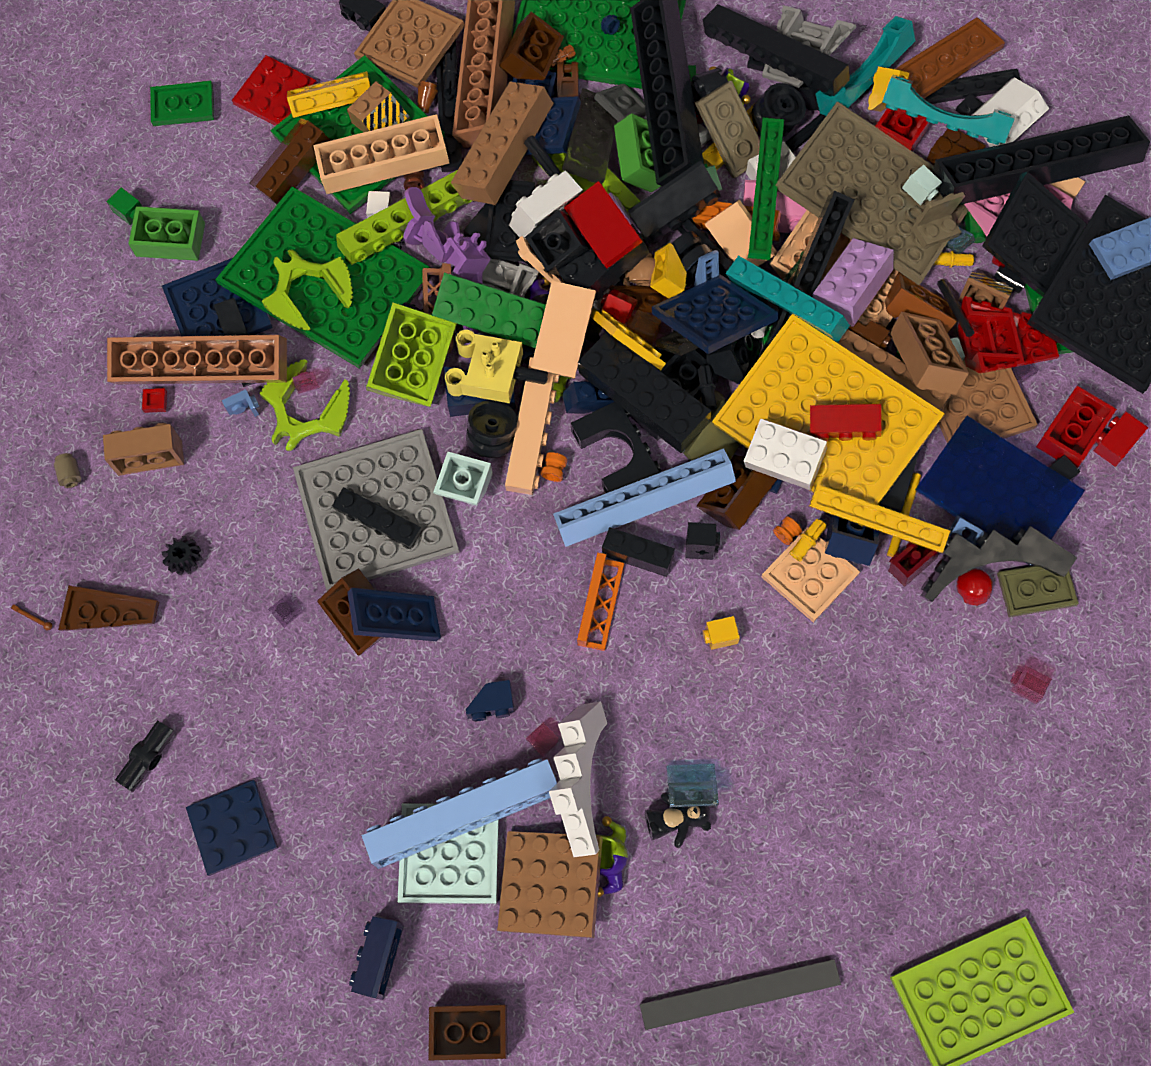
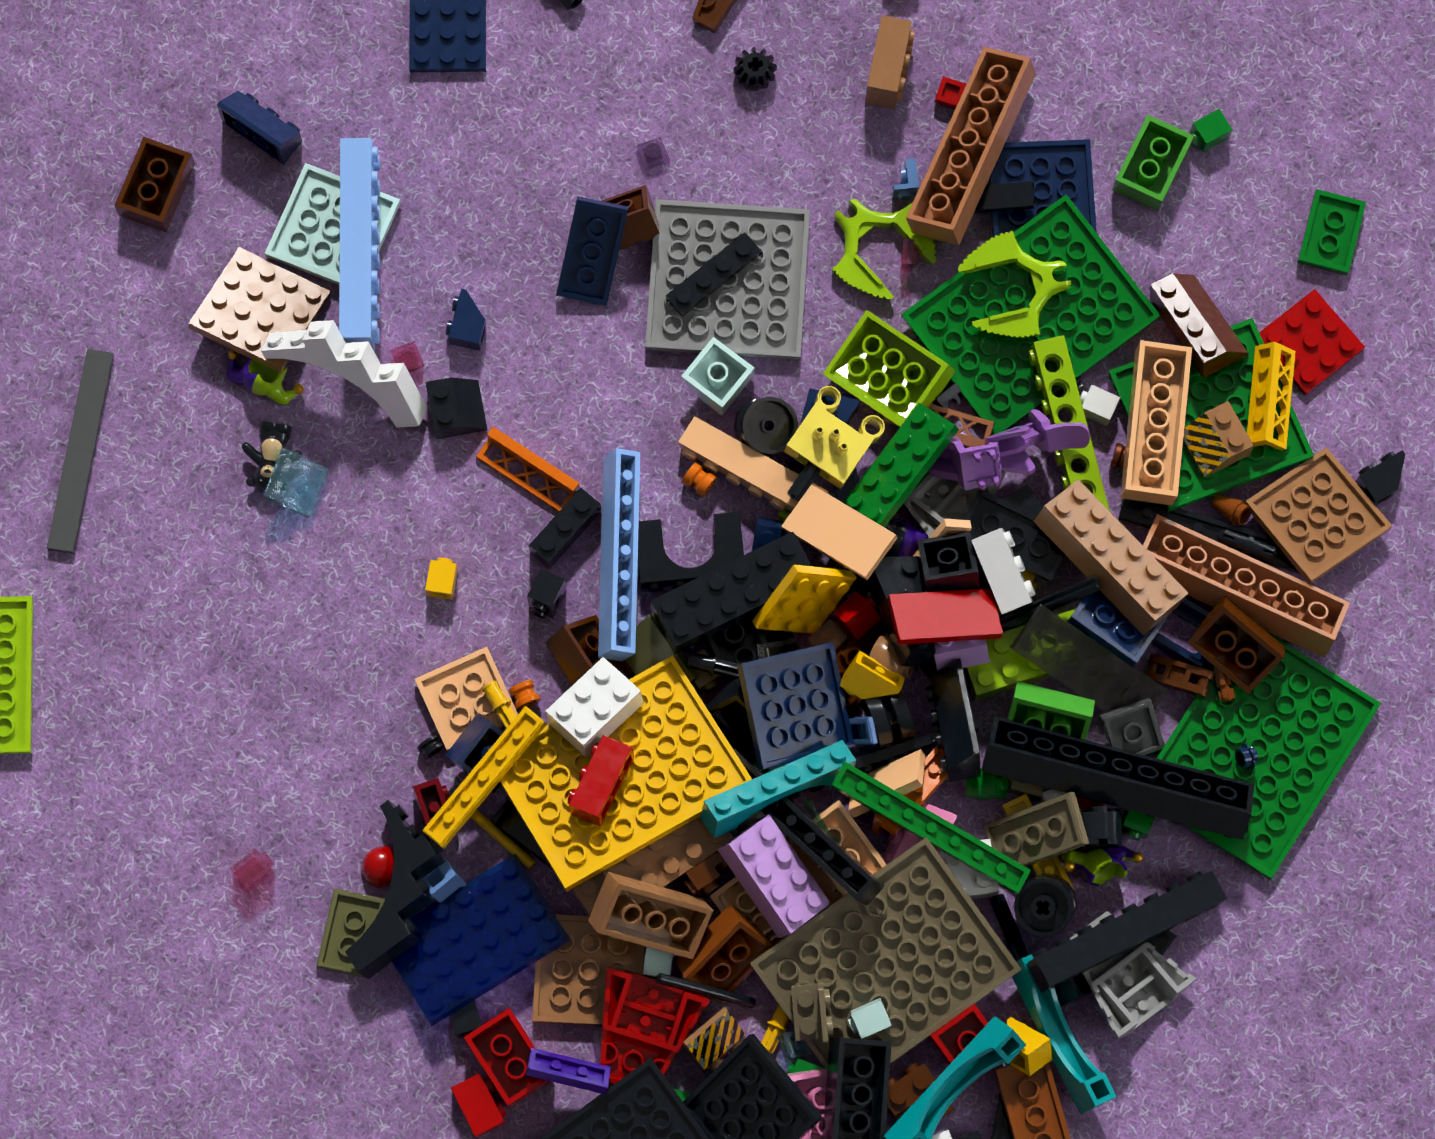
camera: 105 degrees right, 5 degrees up
(570, 682) = (456, 407): none -> black slope
(862, 586) = (430, 746): none -> black bush
(1071, 372) = (568, 1071): none -> dark purple plate

